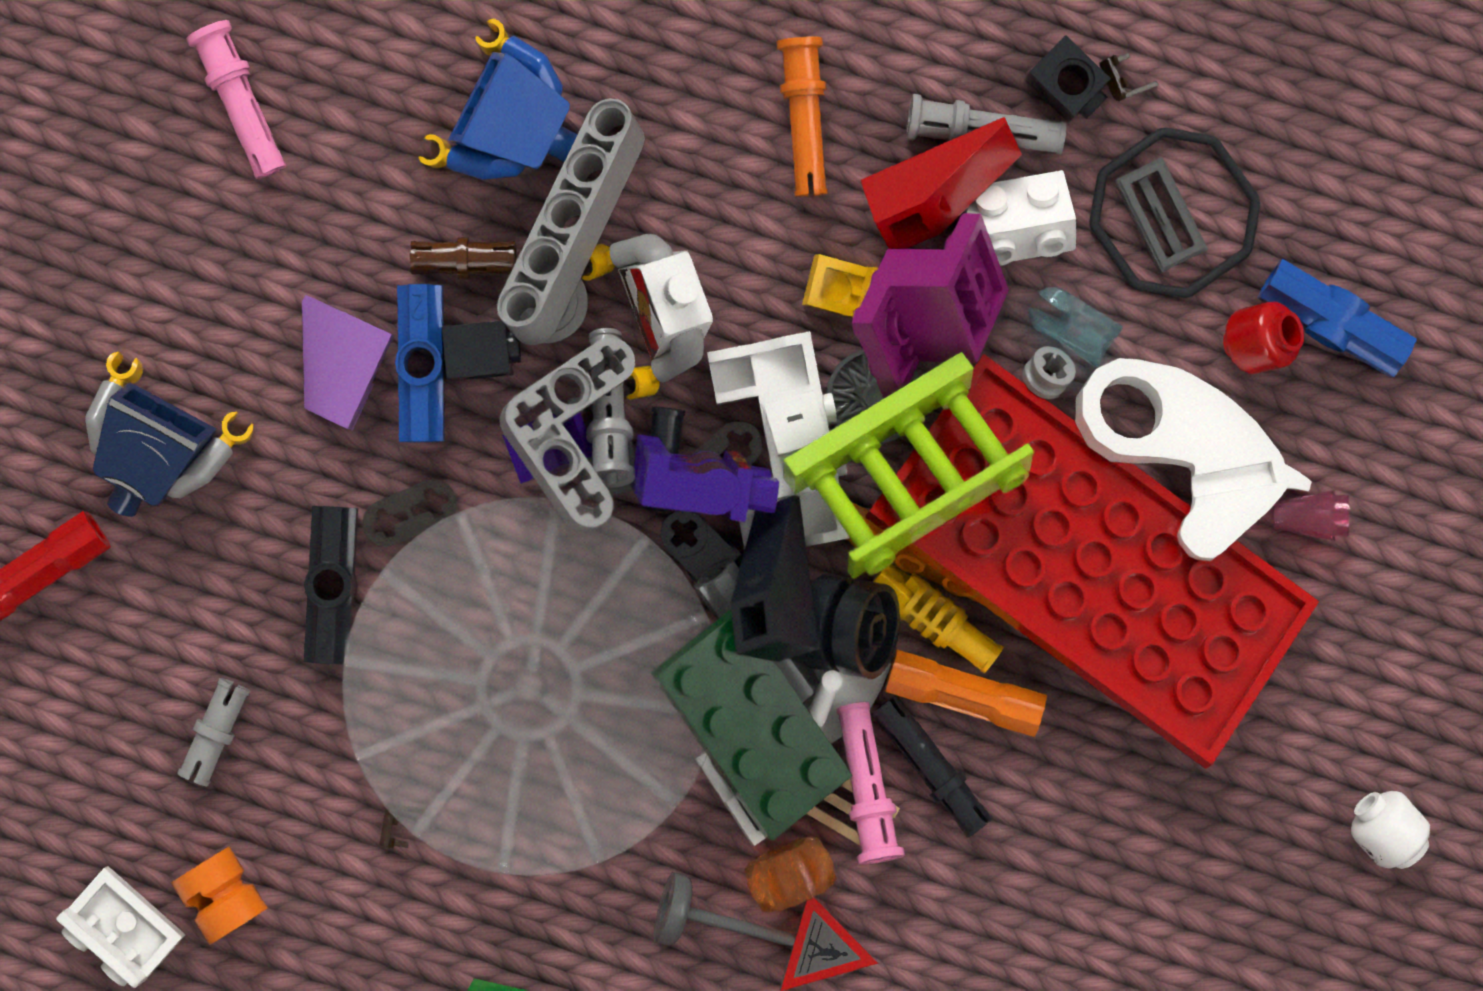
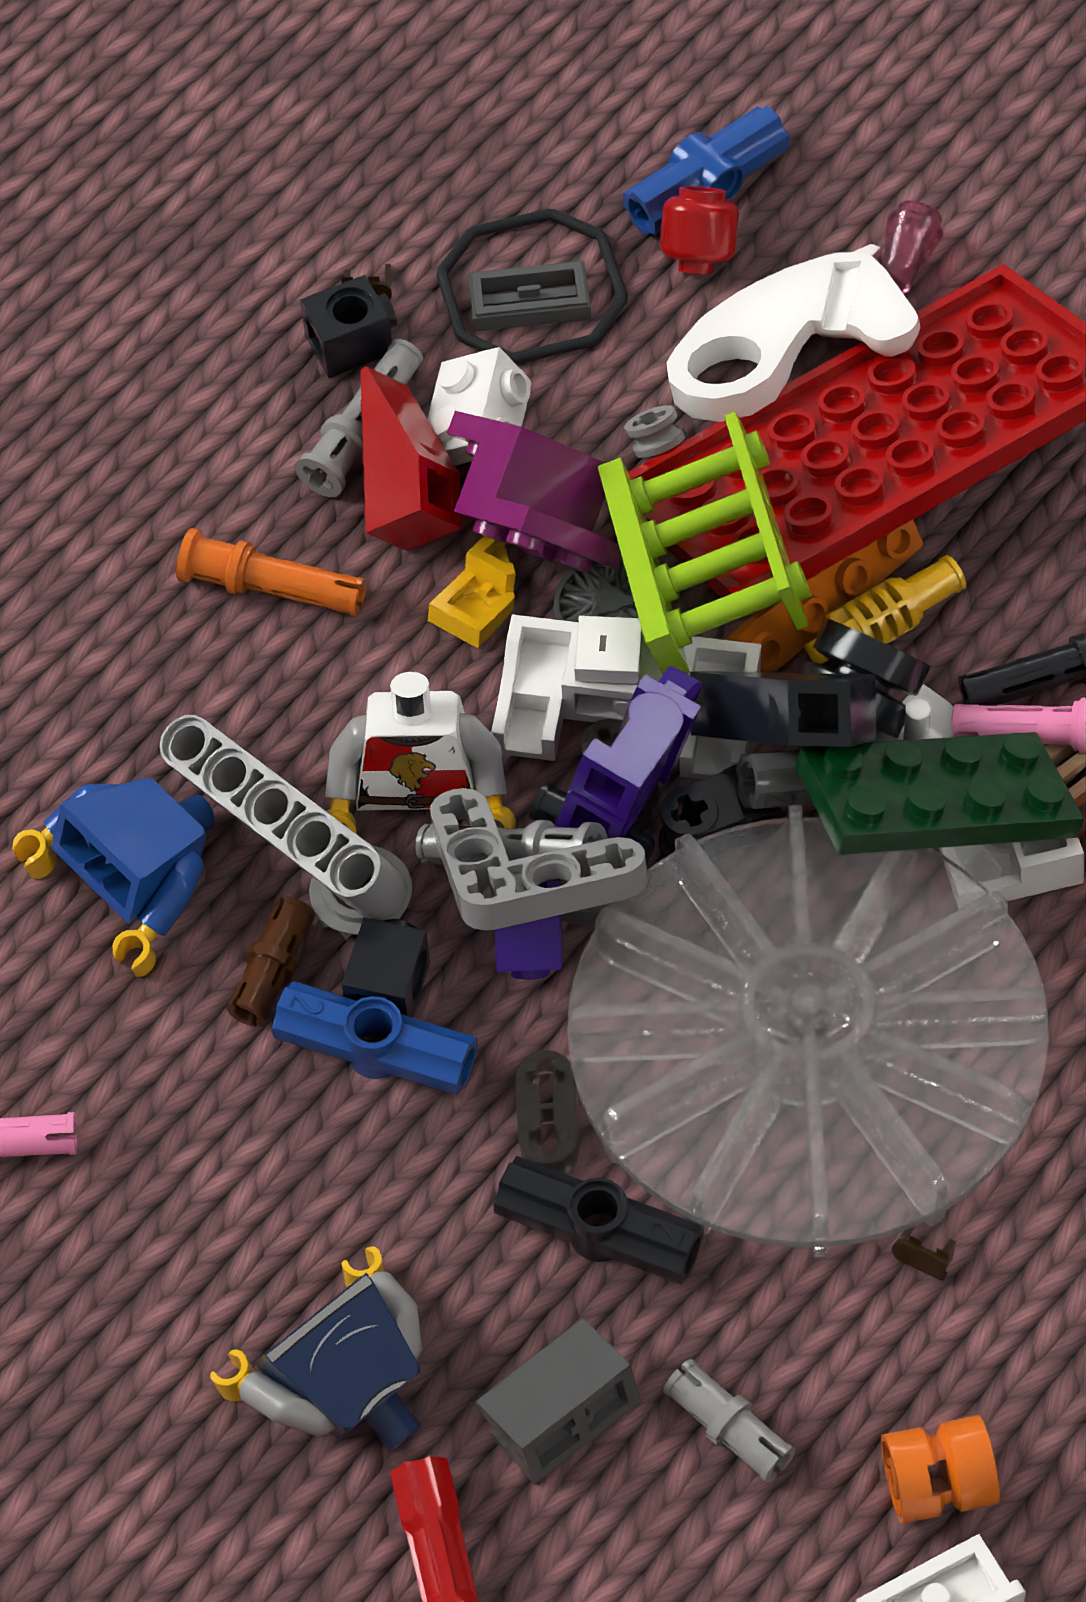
camera: 70 degrees left, 30 degrees down
(182, 607) = (559, 1400): none -> dark grey hinge
(339, 361) = (333, 1129): medium lavender slope -> none
(966, 693) = (1007, 580): orange axle -> none
(1079, 325) = (614, 393): clear light blue piece -> none

